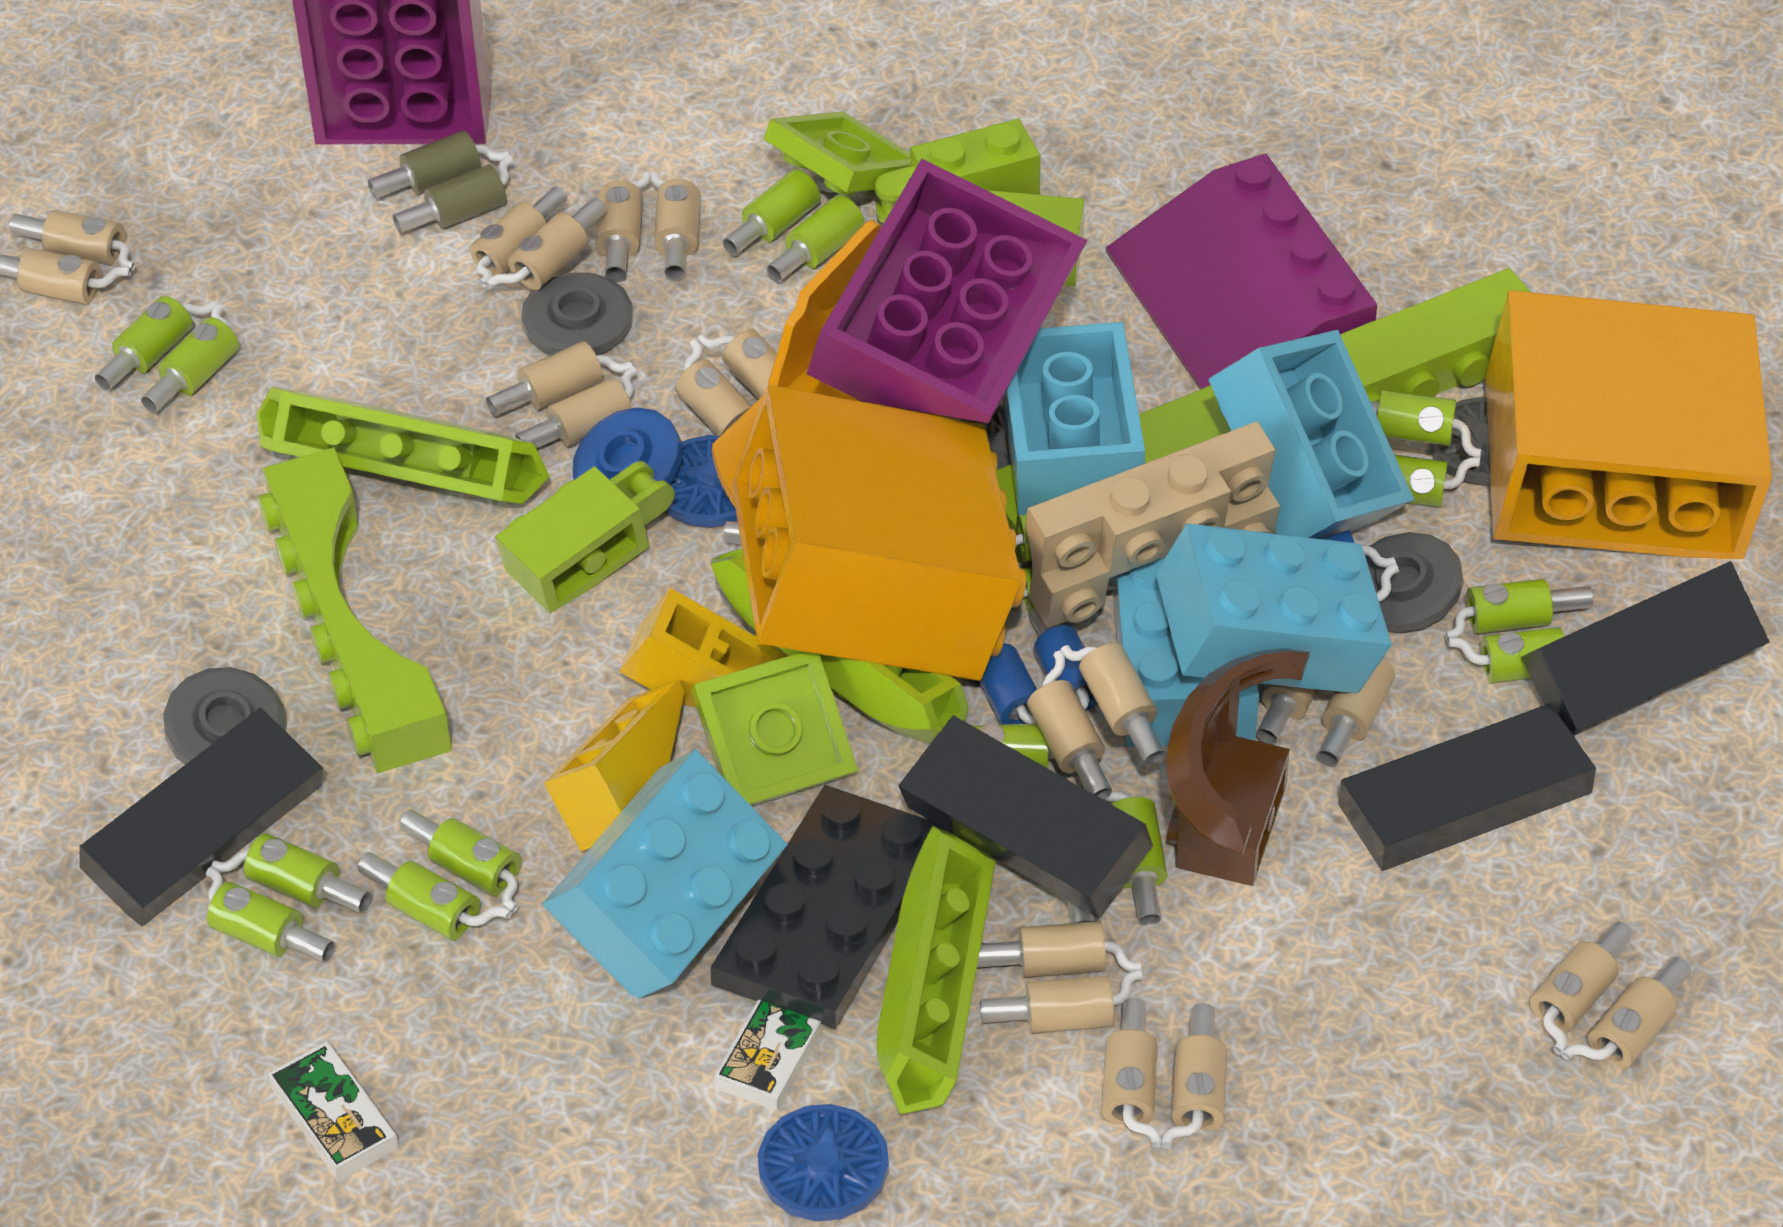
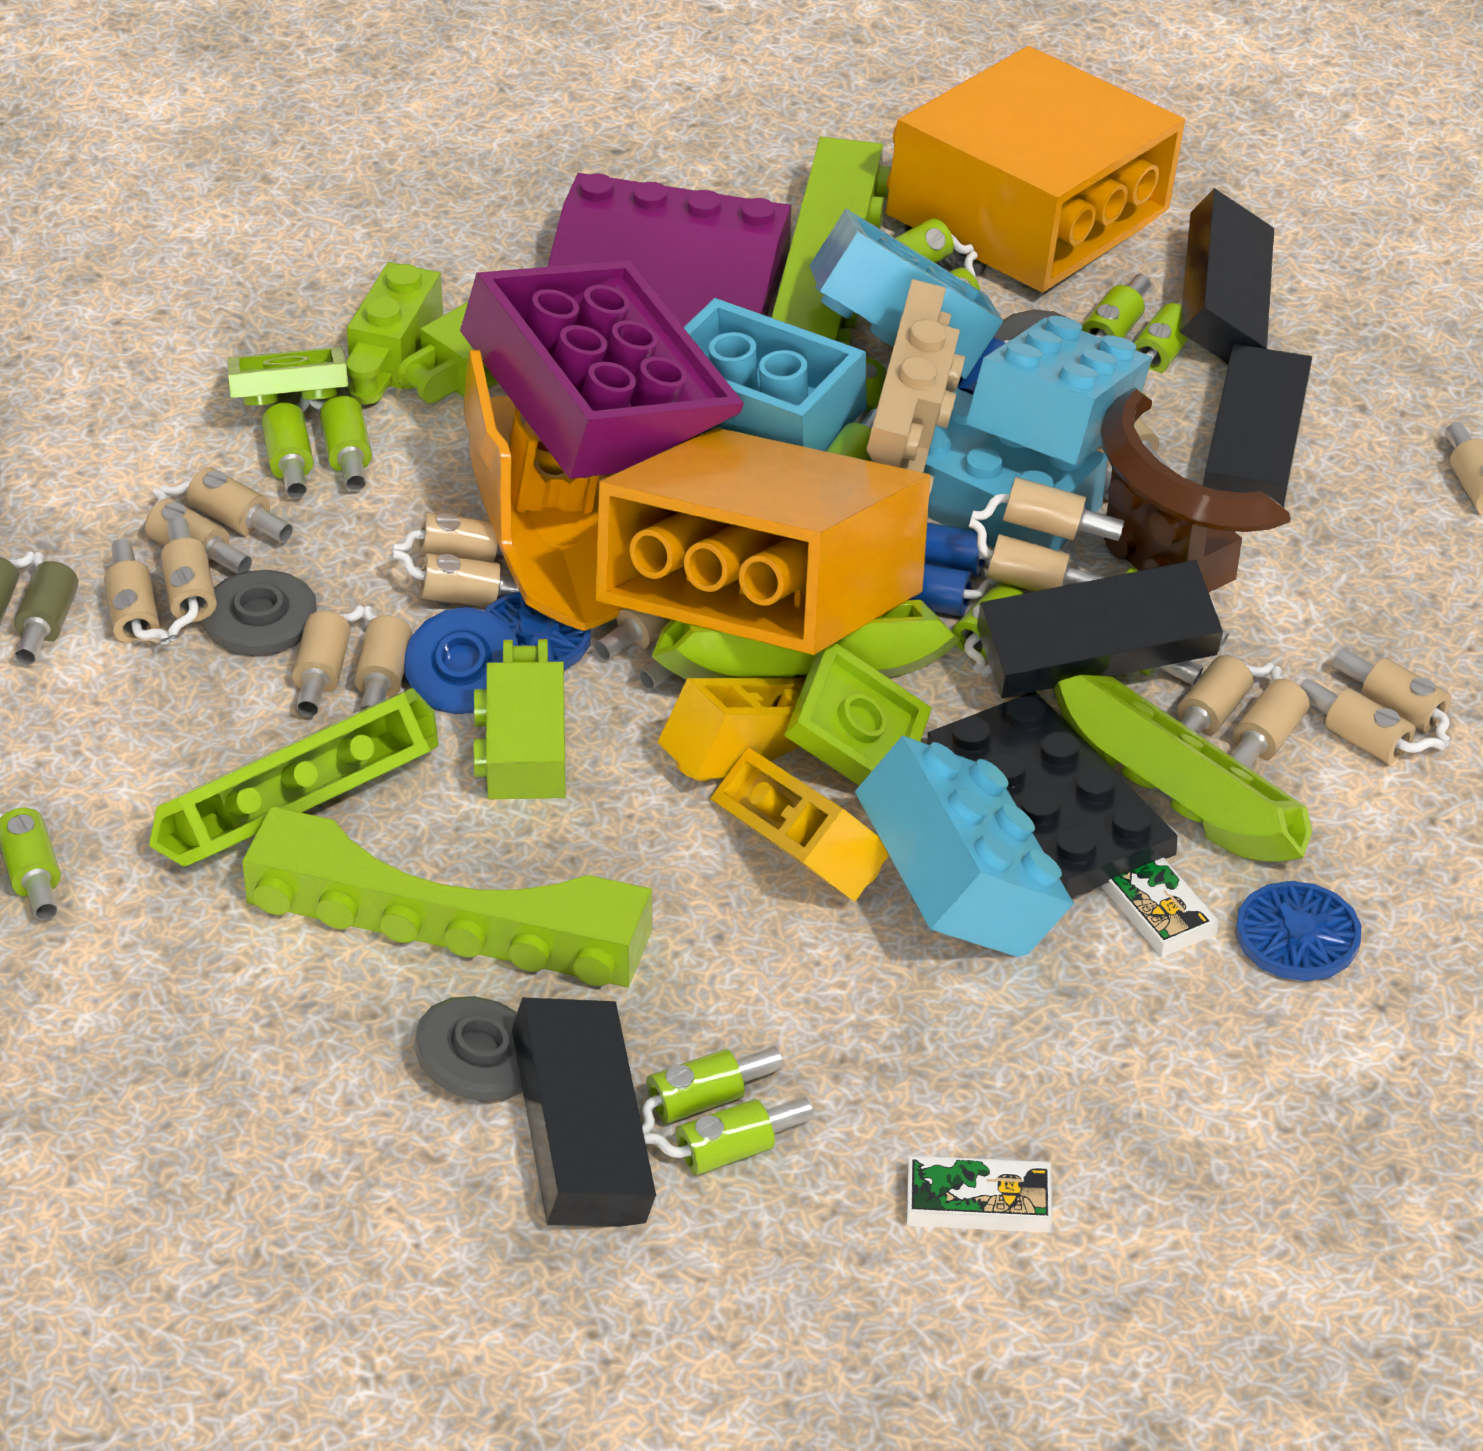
camera: 55 degrees left, 5 degrees down
(435, 899) = (803, 1016): lime piece -> none

